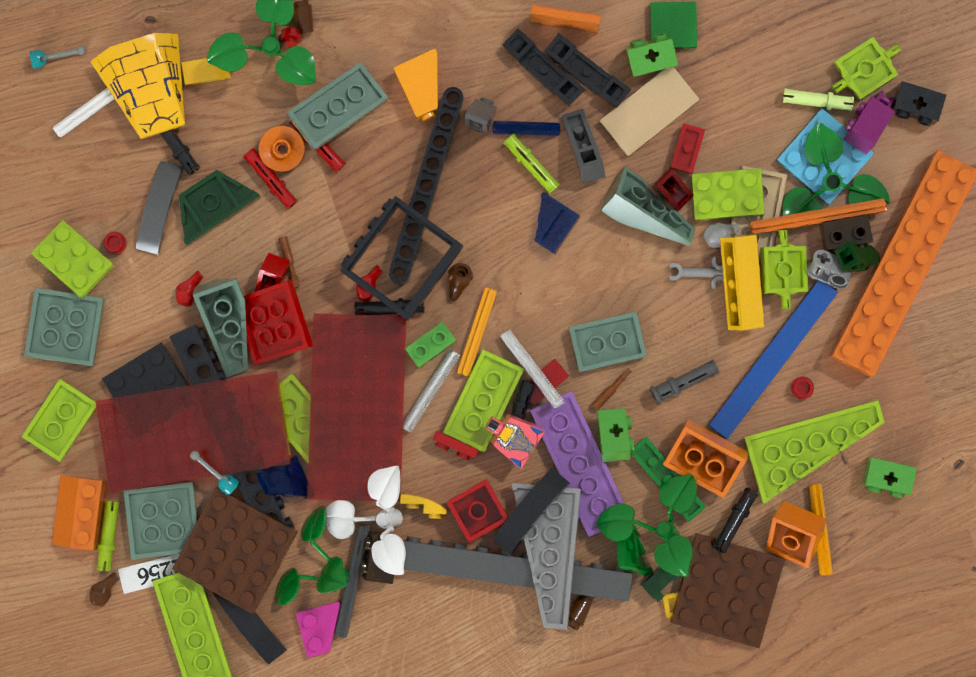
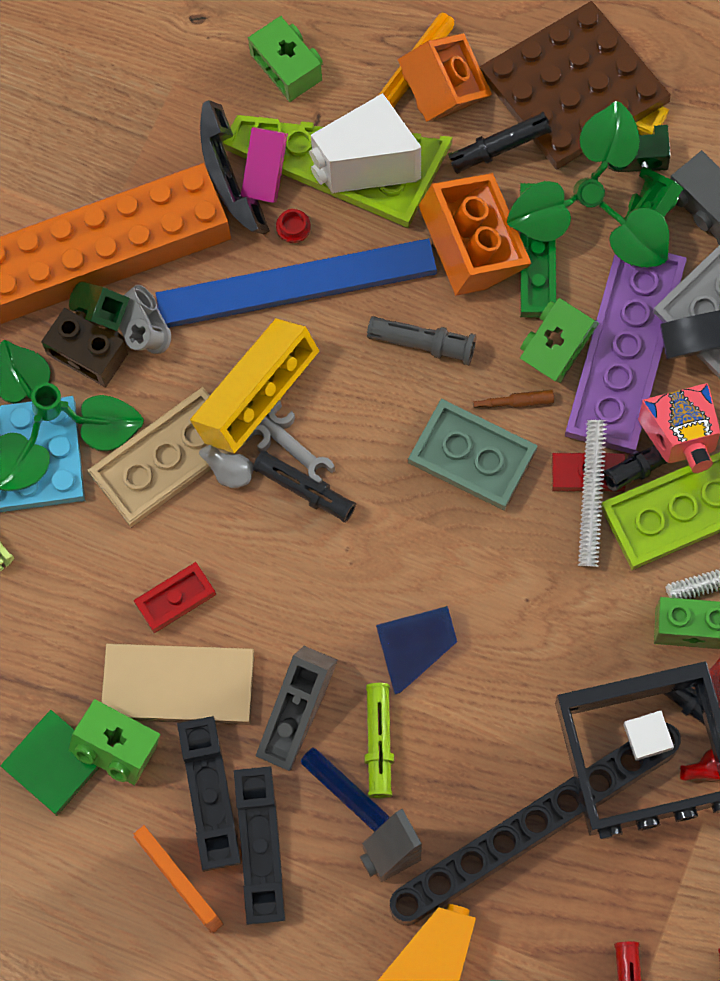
camera: 140 degrees left, 15 degrees down
(405, 260) = (648, 735): none -> white tile
(459, 279) = (591, 672): reddish brown animal -> none
(477, 331) = (621, 596): light orange axle -> none
(636, 206) = (295, 576): sand green wedge -> none
(673, 189) = (236, 566): dark red slope -> none
(674, 256) = (340, 506): none -> black pin
(728, 194) = (177, 502): lime plate -> none
(784, 269) = (193, 364): lime plate -> none
(797, 450) = (366, 149): none -> white slope
(817, 216) = (99, 390): orange axle -> none
(831, 372) = (213, 131): none -> black slope
(844, 405) = (264, 164): none -> dark pink tile

